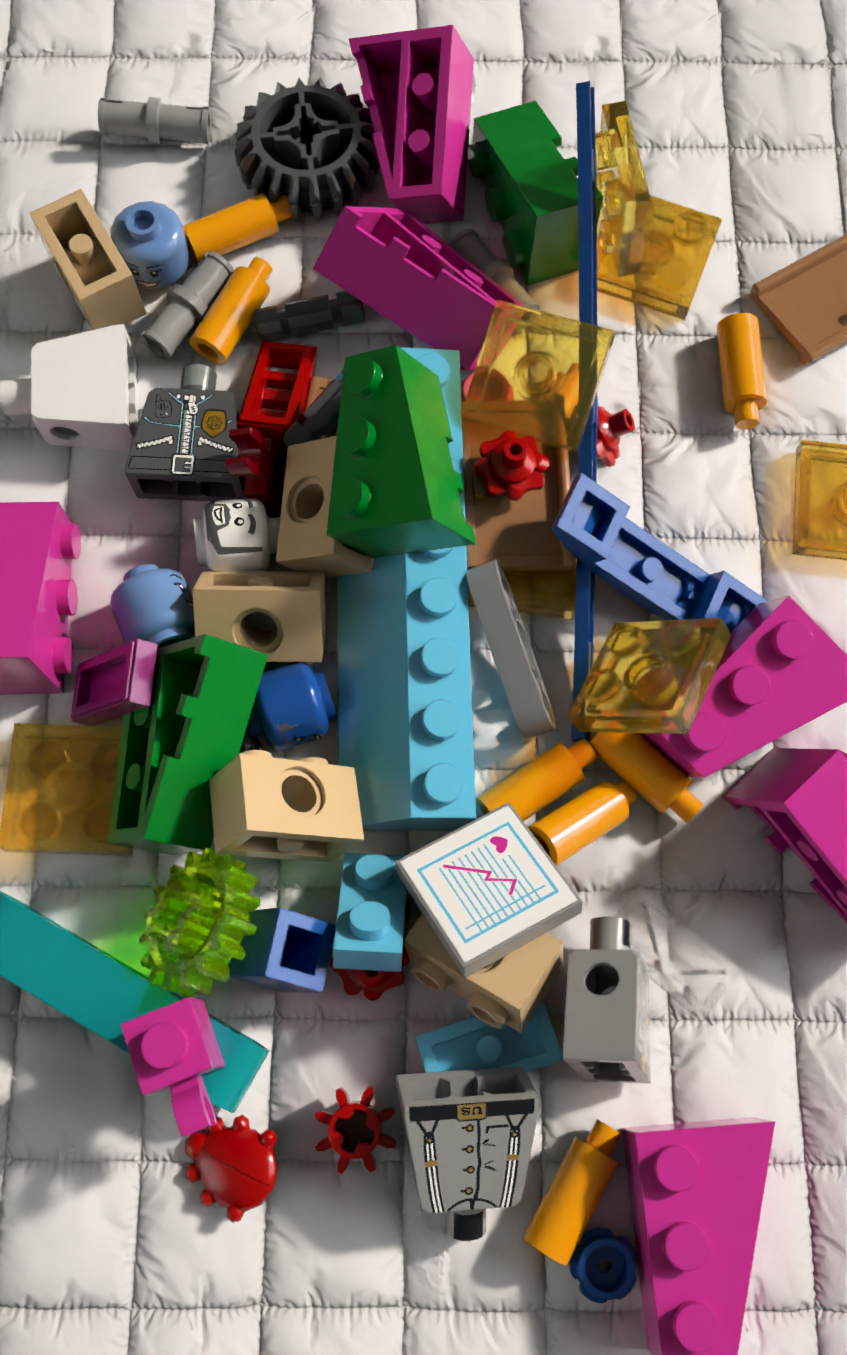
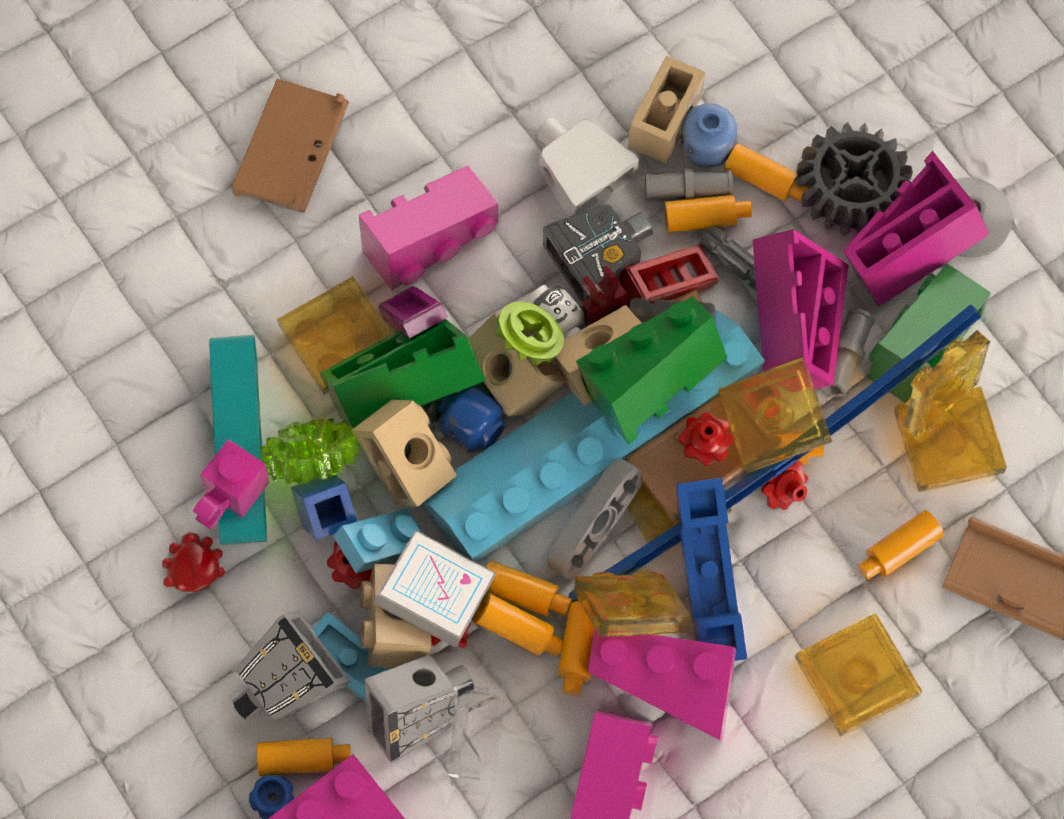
camera: 55 degrees right, 5 degrees down
(153, 606) = (473, 301): medium blue head -> none
(154, 120) = (804, 74): light grey pin -> none
(223, 560) = (526, 318): none -> lime gear
(337, 1136) = (251, 600): red gear -> none

